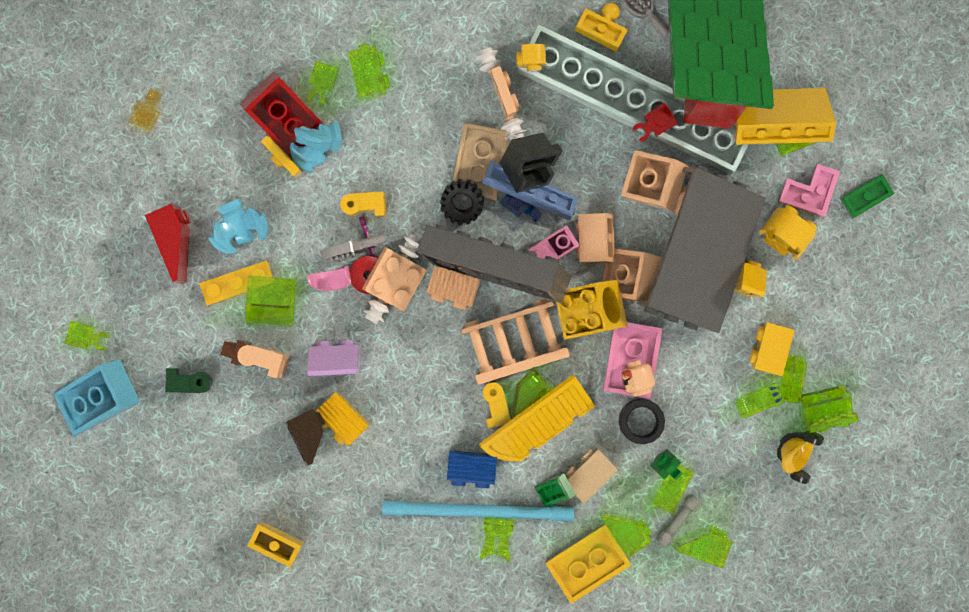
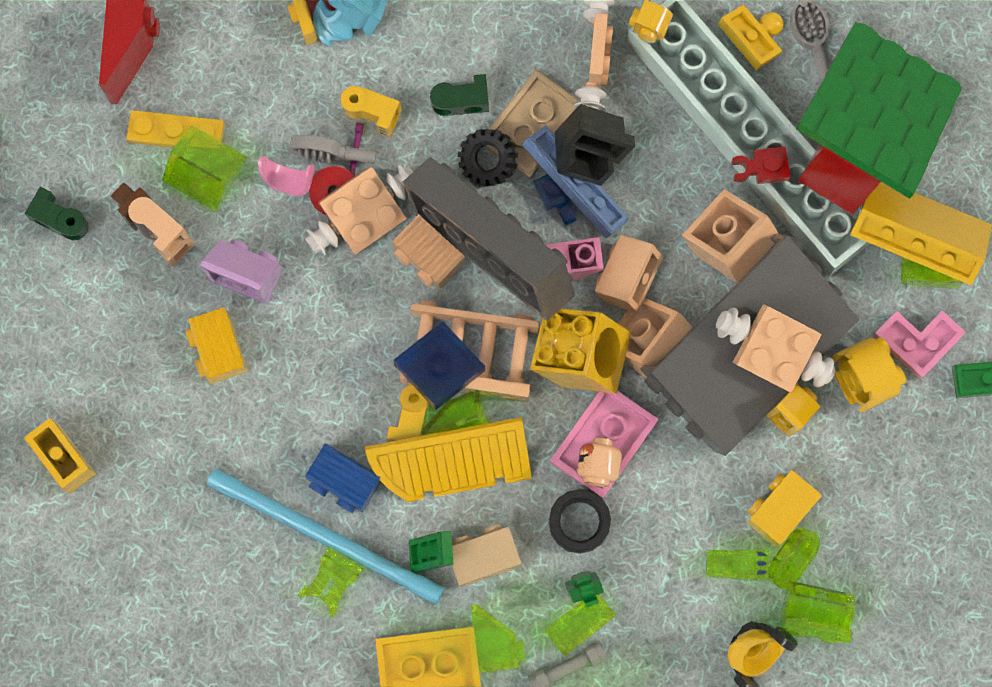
camera: 25 degrees right, 10 degrees down
(239, 225) = (210, 62): medium azure animal -> none
(307, 433) = (165, 338): dark brown slope -> none
(416, 172) = (460, 99): none -> dark green leg
(500, 363) = (439, 365): none -> clear blue tile
(722, 248) = (776, 347): none -> light nougat plate

